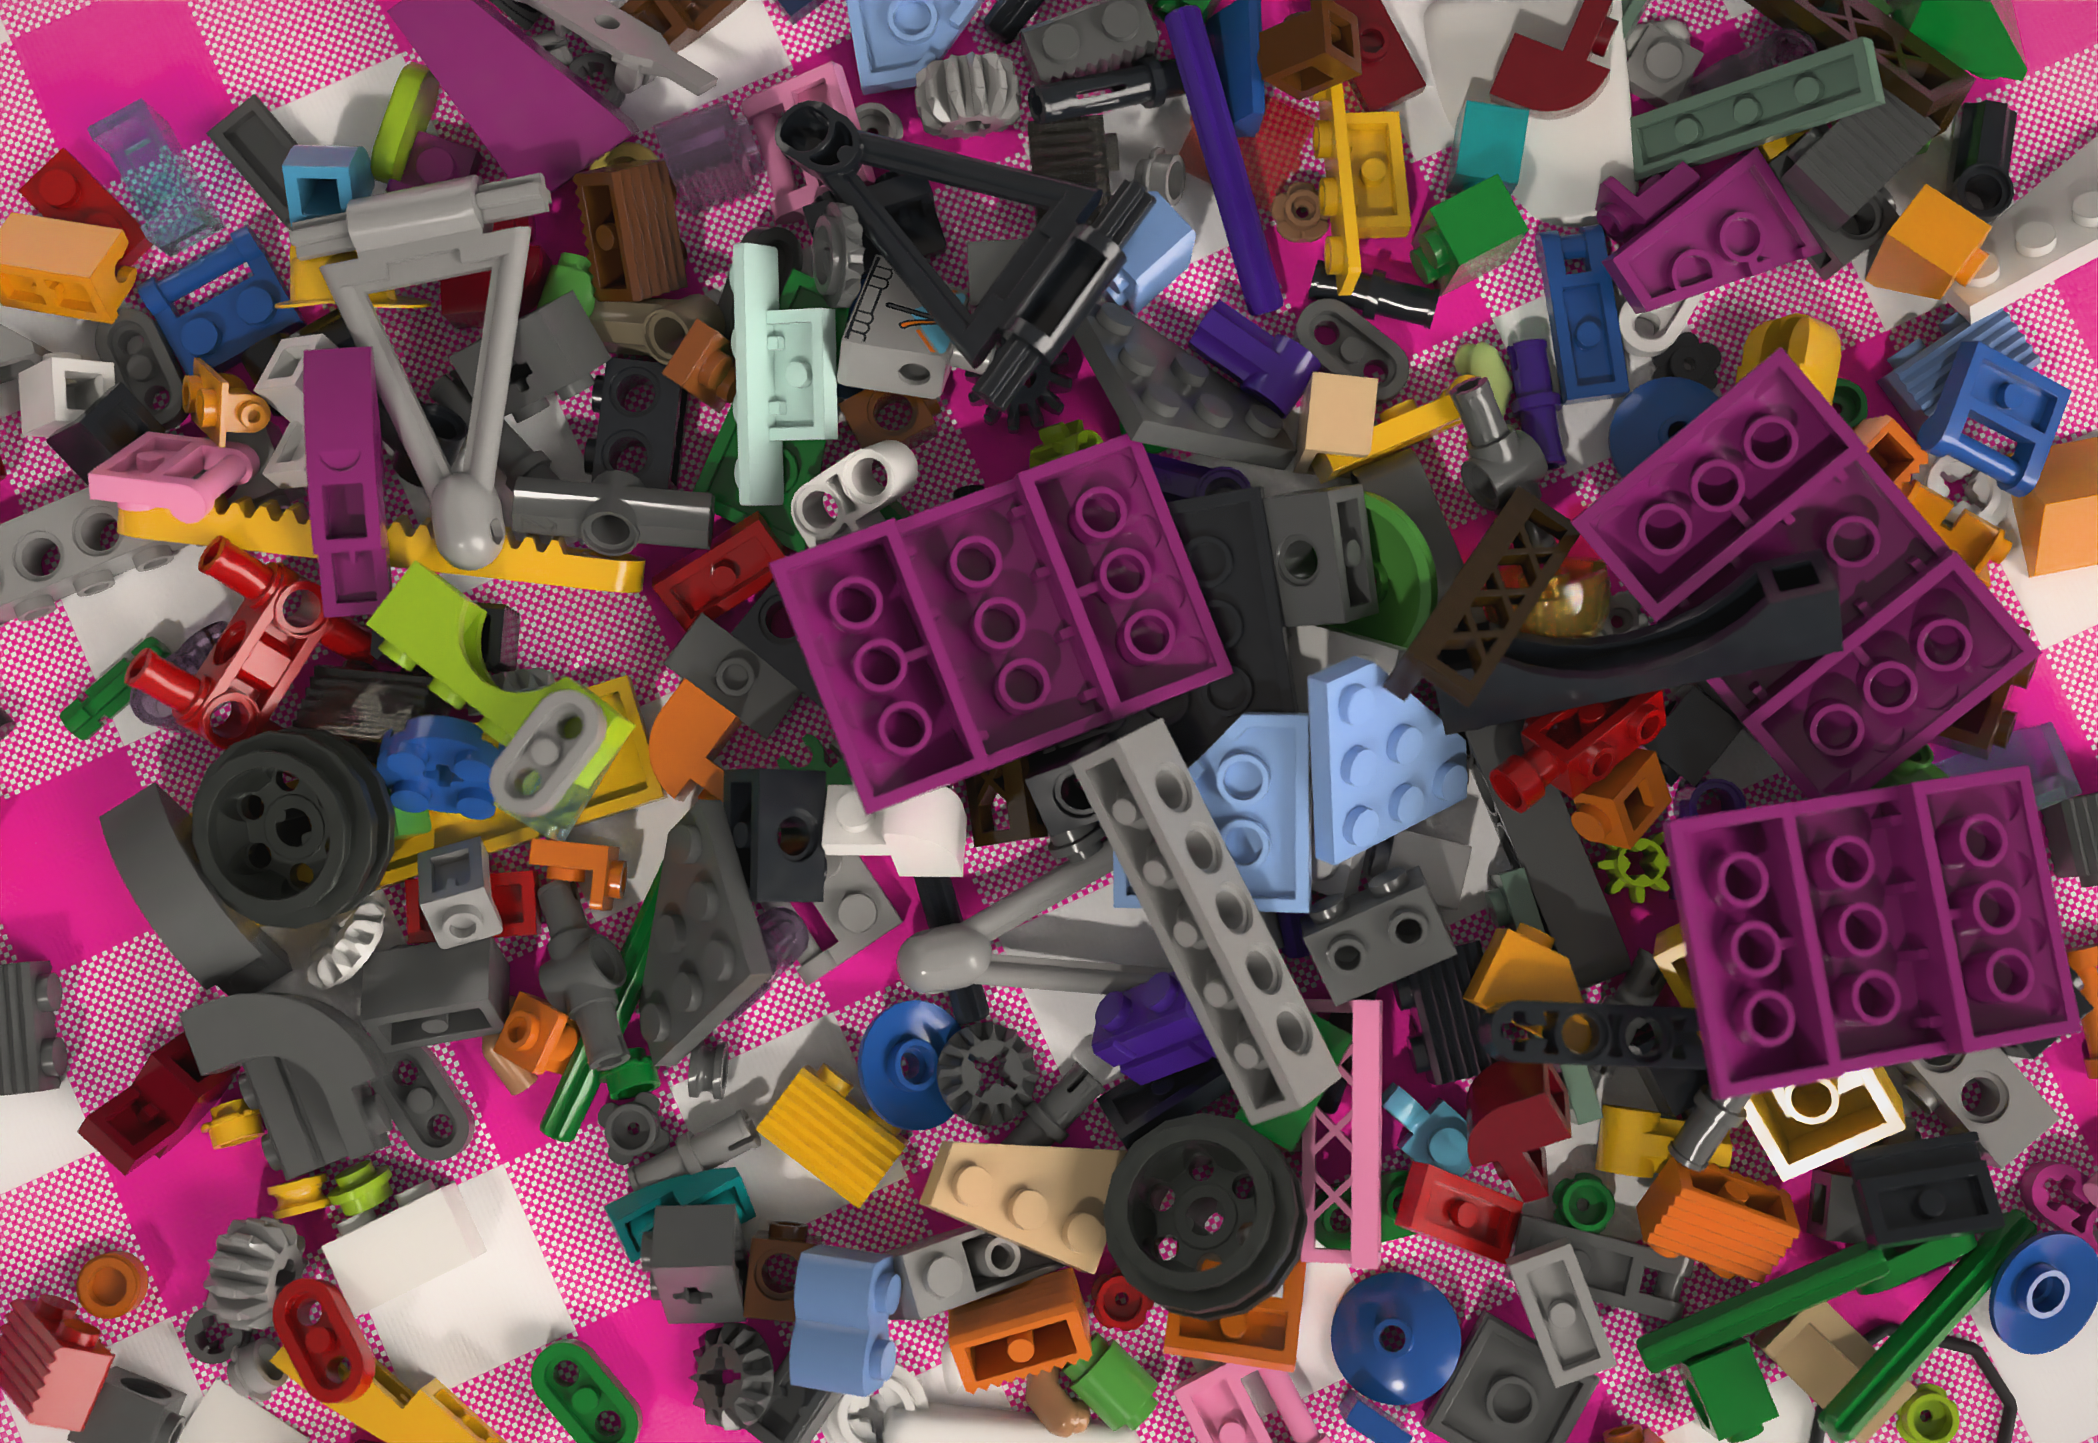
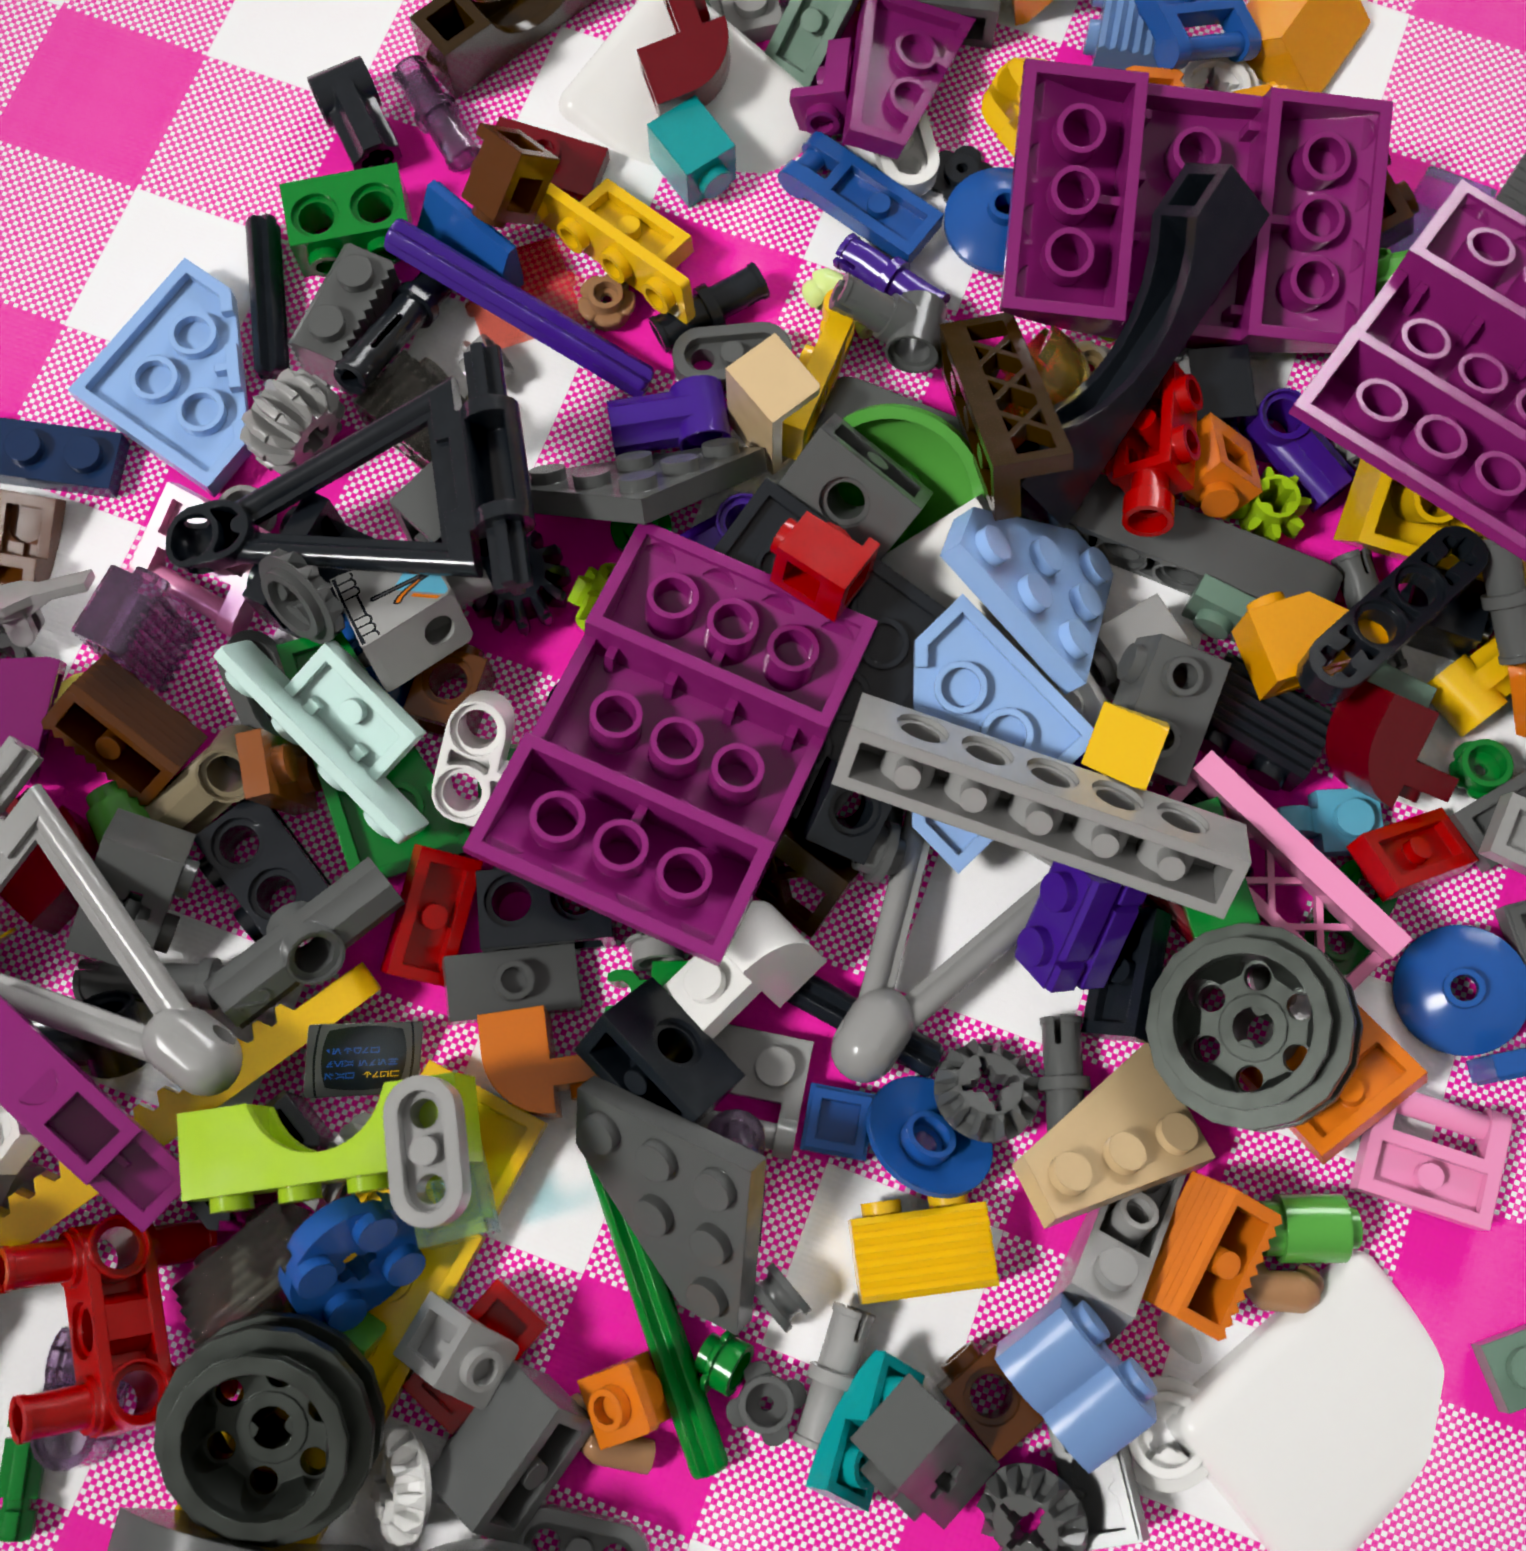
camera: 45 degrees left, 10 degrees down
(571, 860) = (519, 1241): orange bracket -> none
(582, 630) = (360, 1057): none -> sticker
(583, 975) = (614, 1319): dark grey pin -> none
(864, 990) = (836, 1122): none -> blue tile
(1112, 1314) = (1266, 1163): red plate -> none
(1154, 256) = (533, 384): medium blue brick -> none
(1228, 593) = (821, 564): none -> red brick
(1312, 938) = (1125, 745): none -> yellow slope
(1467, 236) = (736, 203): green brick -> none

